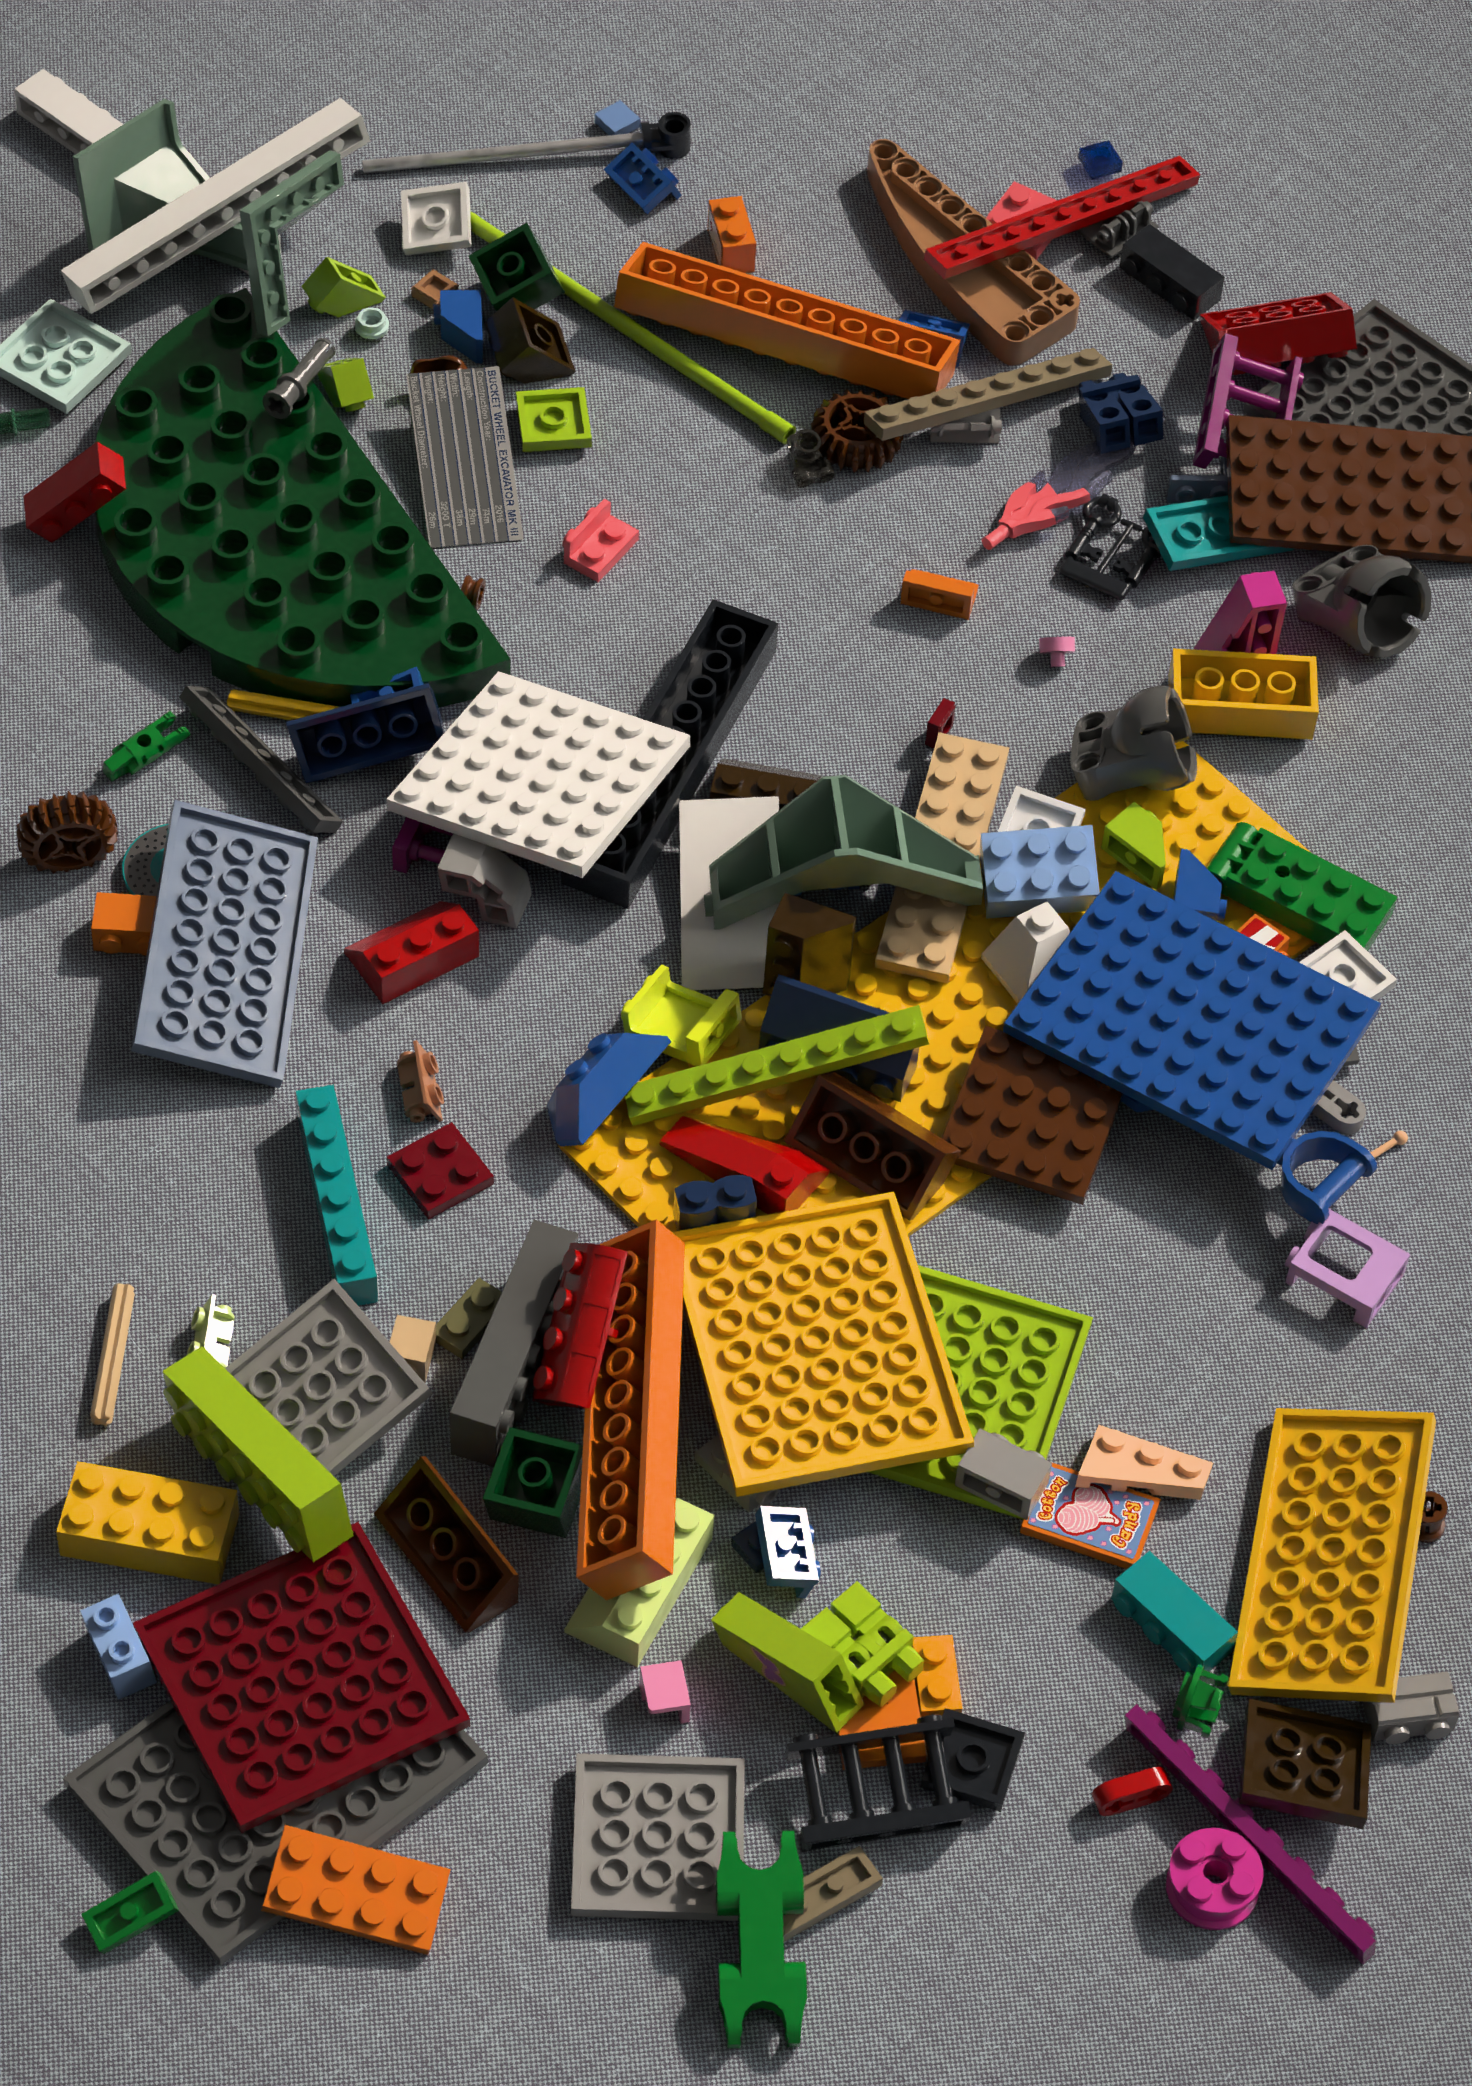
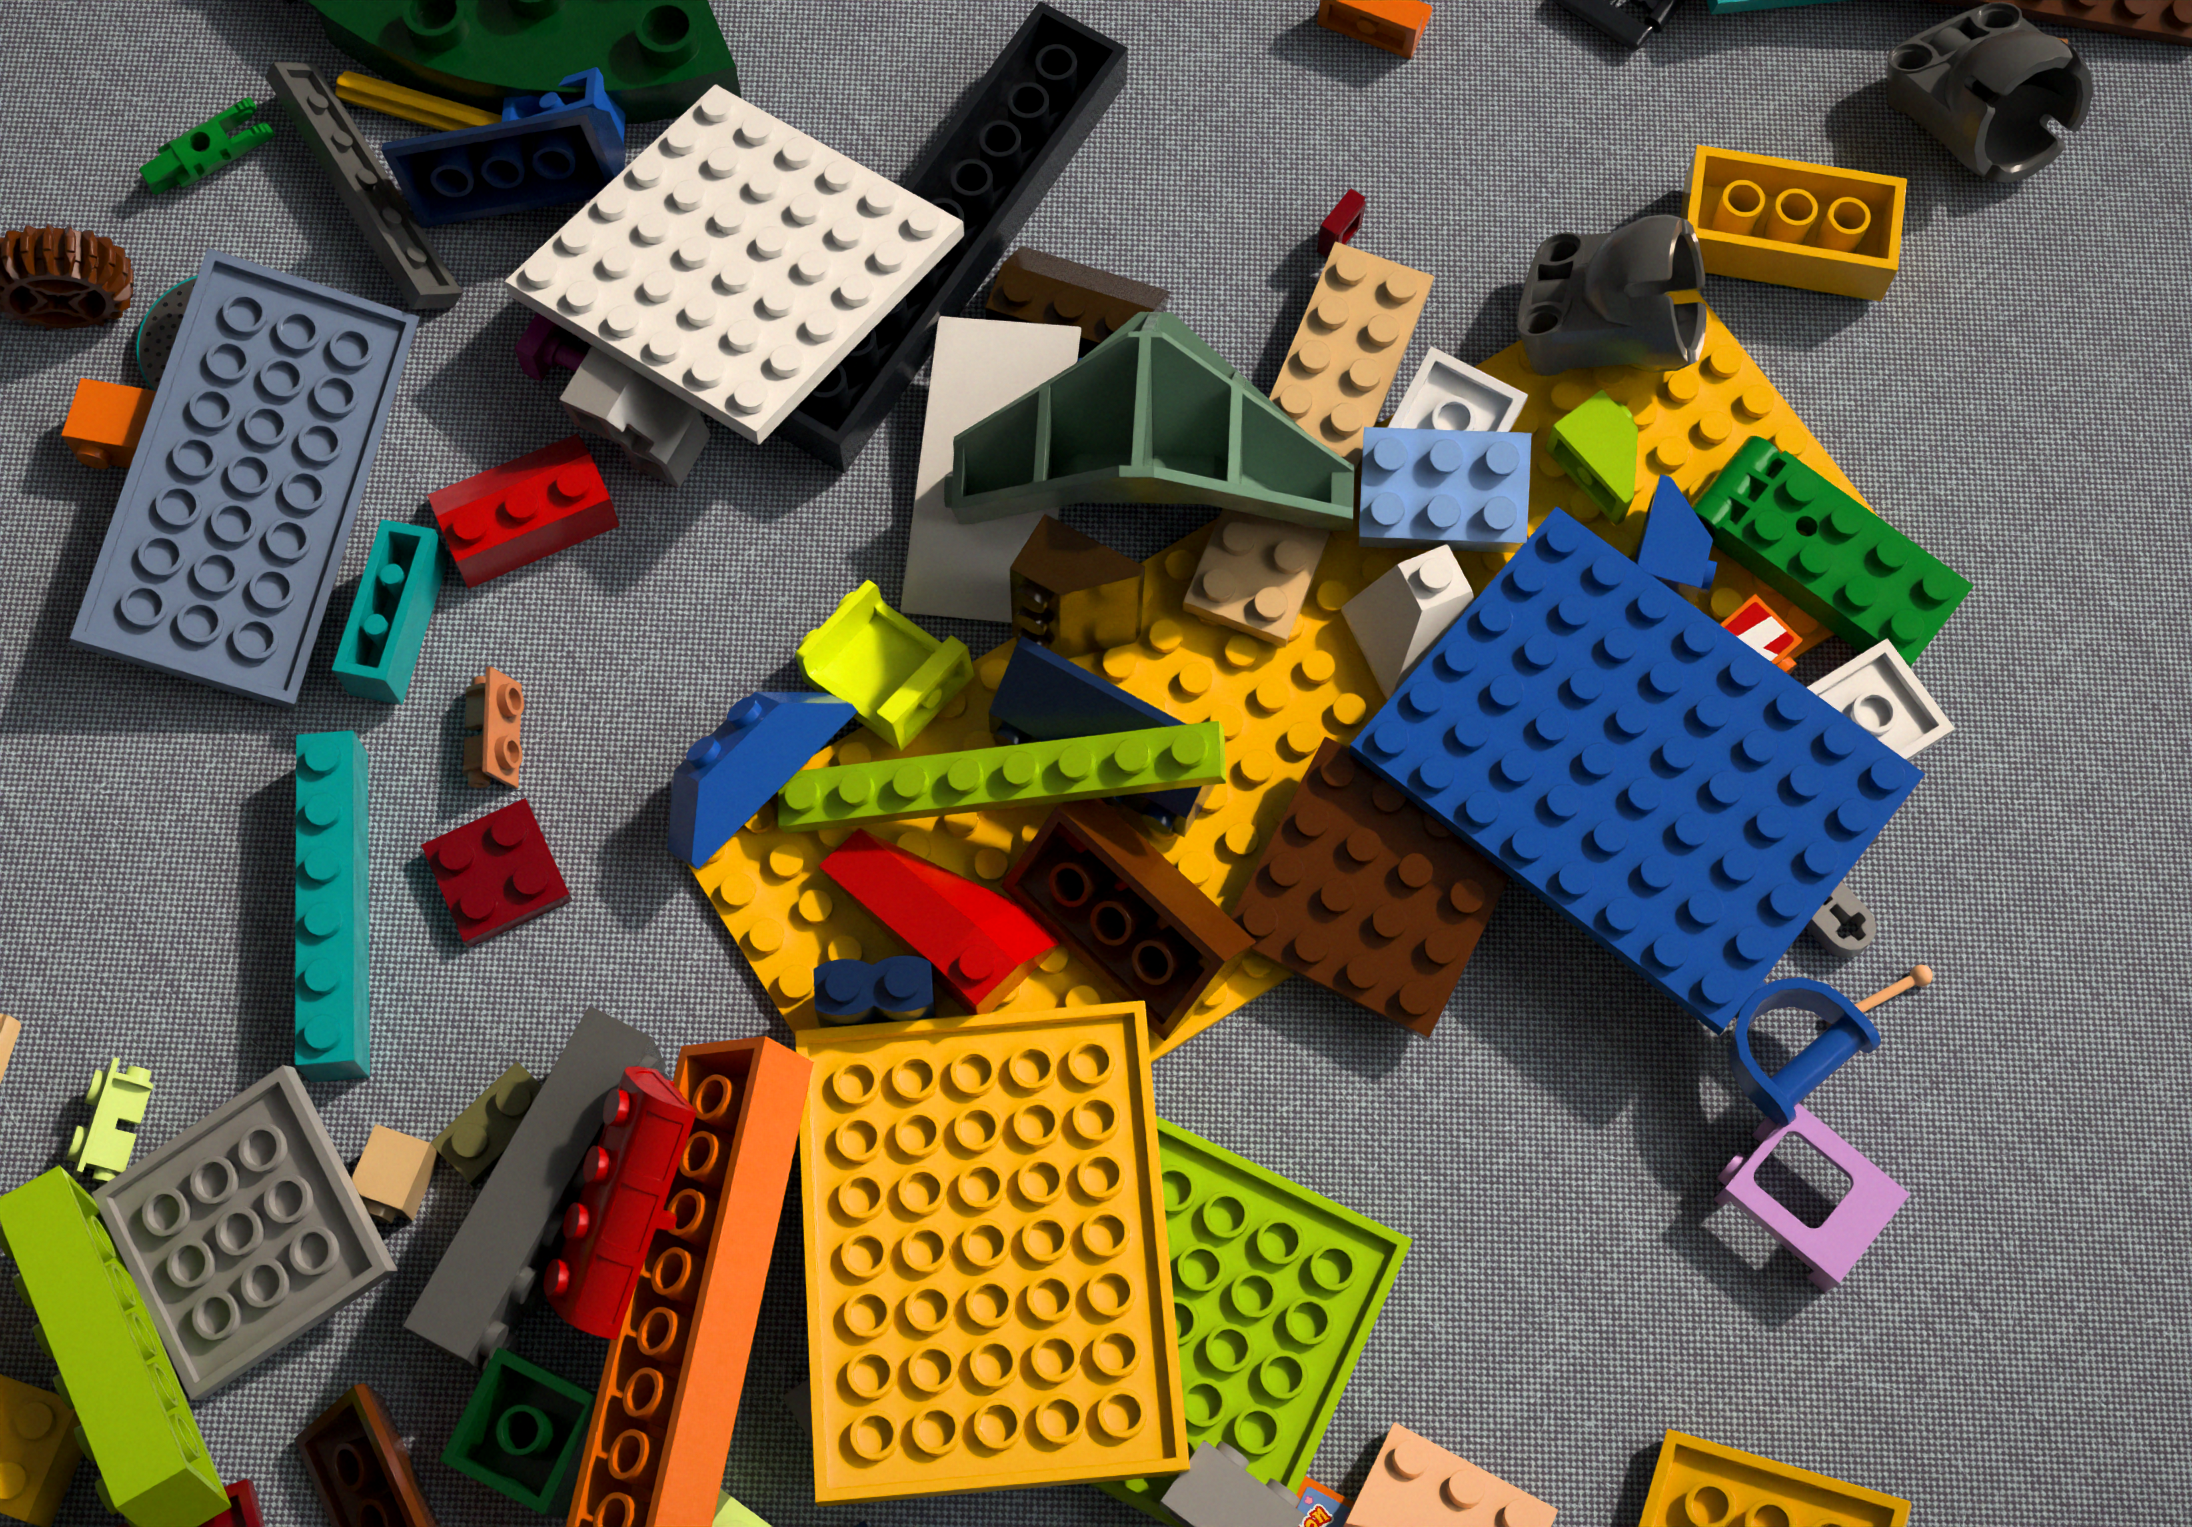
camera: 10 degrees right, 15 degrees up
(340, 1016) = (391, 612): none -> teal brick
(1057, 648) = (1529, 120): bright pink tile -> none
(1248, 617) = (1814, 109): dark pink wedge -> none

